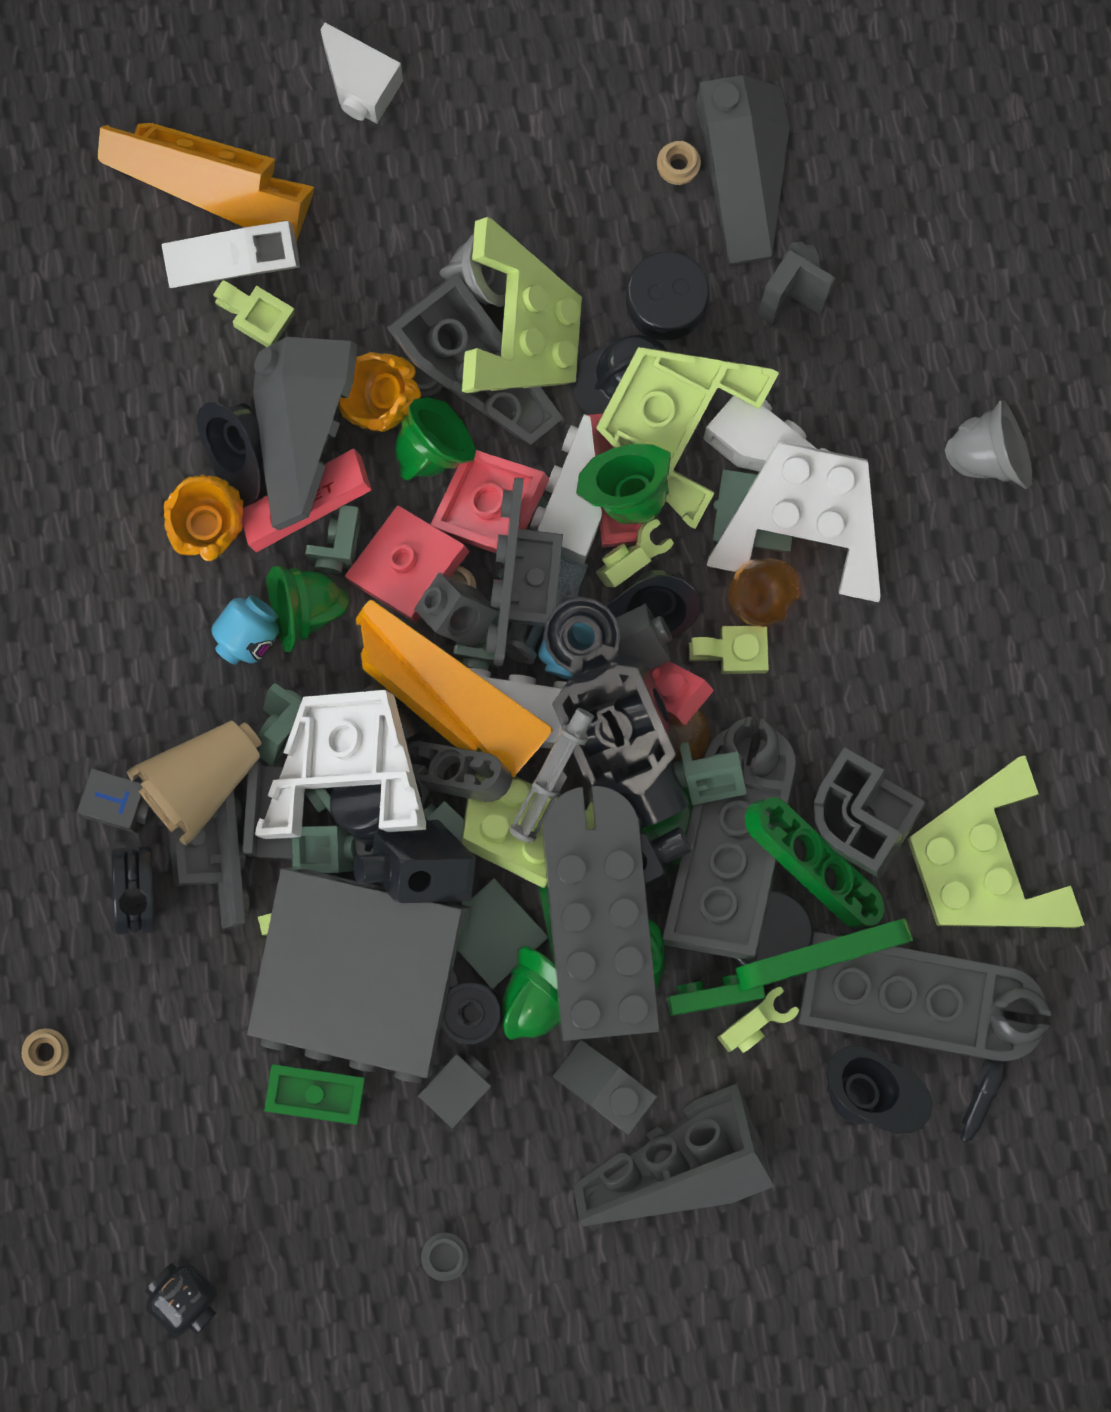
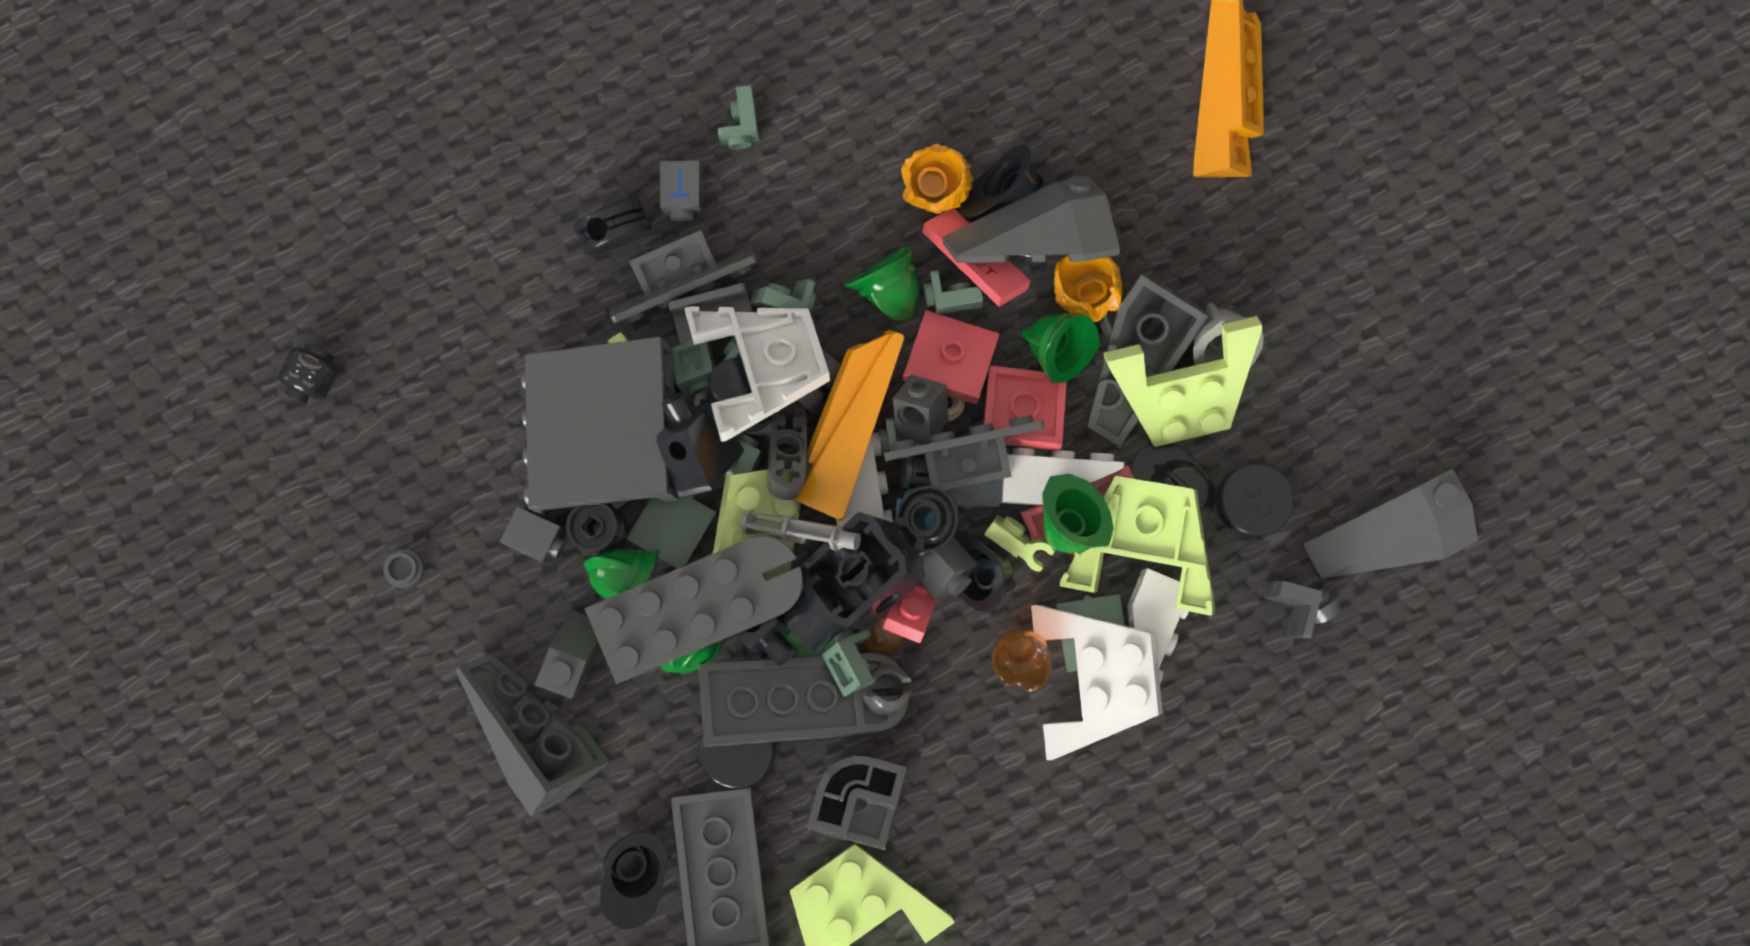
camera: 80 degrees right, 5 degrees up
(31, 1047) = (464, 193): tan plate -> none
(53, 703) = (743, 113): none -> sand green bracket
(197, 776) = (712, 244): tan cone -> none
(231, 254) = (1167, 128): white slope -> none
(245, 630) = (853, 244): medium azure head -> none
(258, 315) = (1124, 167): yellowish green plate -> none
(315, 1094) = (498, 424): green plate -> none
(361, 75) = (1361, 181): white slope -> none
(683, 151) = (1389, 470): tan plate -> none
(694, 998) = (666, 706): green plate -> none
(739, 649) = (969, 653): yellowish green plate -> none
(747, 1030) = (654, 756): yellowish green plate -> none
(812, 869) = (800, 771): green beam -> none
(824, 954) = (728, 802): green beam -> none
(991, 448) = (1212, 819): light grey piece -> none

